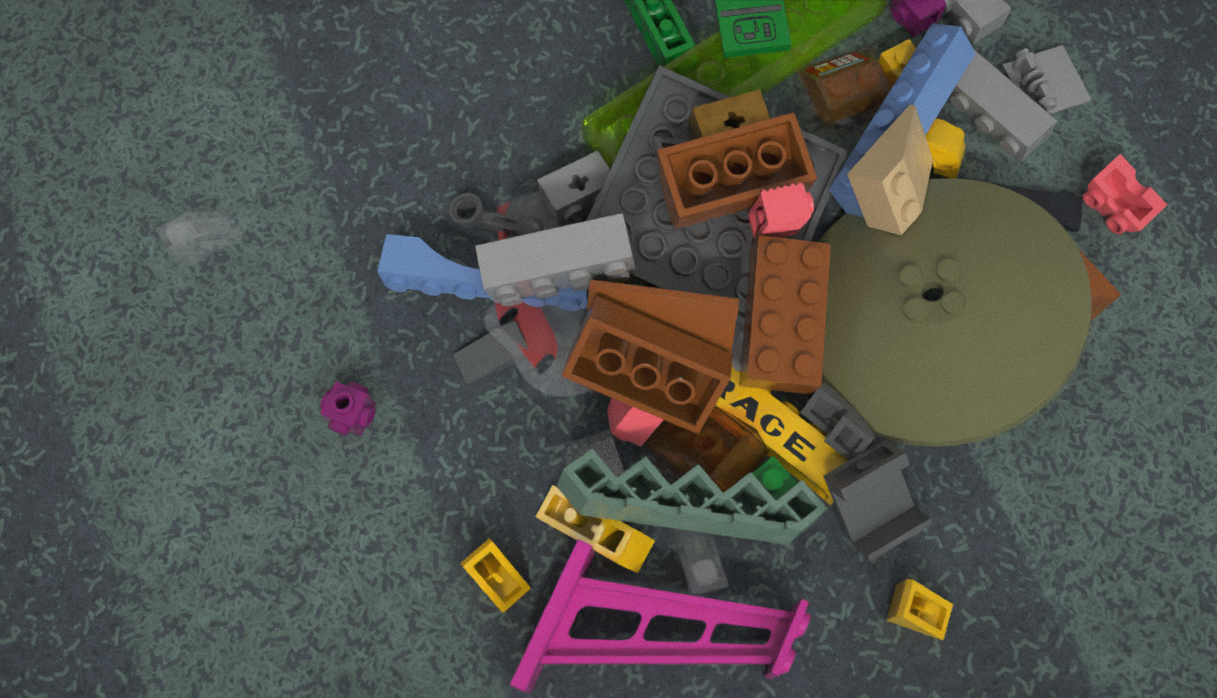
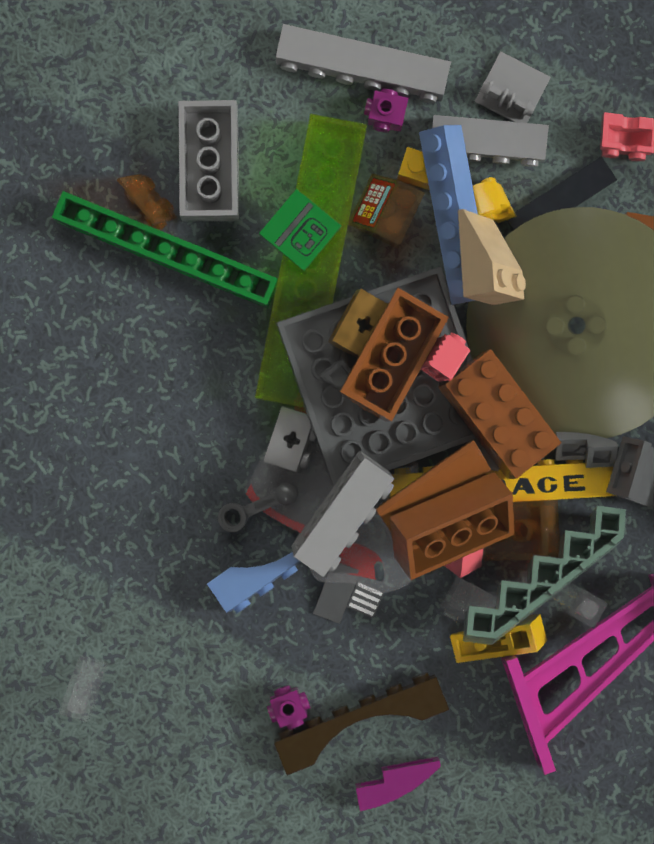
camera: 55 degrees left, 15 degrees up
(327, 459) = (417, 700): none -> dark brown arch
(369, 568) = (396, 782): none -> magenta slope
(495, 575) = (469, 718): yellow slope -> none
(509, 384) = (365, 601): none -> tile
(774, 478) = (576, 518): green brick -> none

